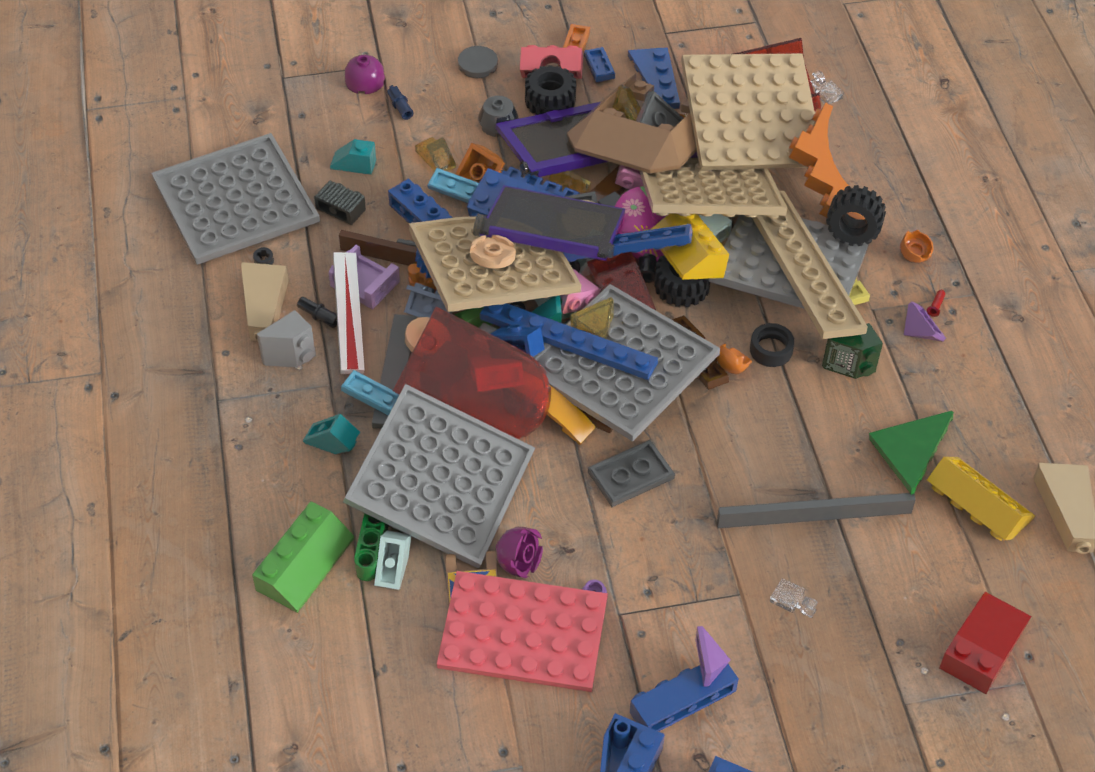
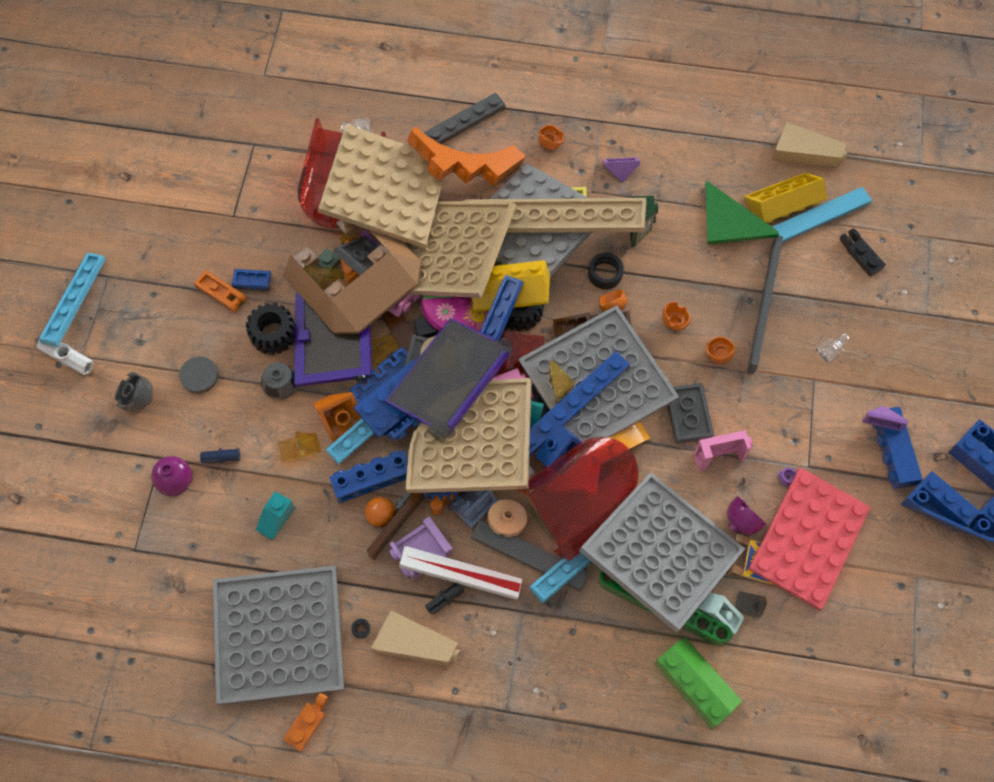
camera: 70 degrees left, 15 degrees up
(156, 246) = (306, 723): none -> orange plate
(287, 342) = (480, 630): light grey slope -> none
(332, 435) = (583, 625): teal slope -> none
(340, 202) = (325, 542): pearl dark grey brick -> none
(392, 231) = (379, 511): none -> orange hair
(415, 590) = (750, 604): none -> clear smoke tile
(433, 21) = (134, 393): none -> dark grey cylinder
(492, 252) = (470, 424): light nougat plate -> none
(535, 56) = (228, 328): coral arch -> none
(584, 489) = (721, 445): none -> bright pink panel
(657, 70) = (278, 239): blue wing -> none
(724, 478) = (720, 350): none -> orange hair
(746, 422) = (675, 317): none -> orange hair
(859, 201) = (524, 160): black tyre -> none
(886, 168) = (466, 119): none -> dark grey plate
(933, 310) = (603, 148): red piece -> none
(951, 606) = (862, 252): none -> black hinge
(982, 546) = (823, 214): none -> medium azure tile
(984, 642) = (898, 245): red slope -> none

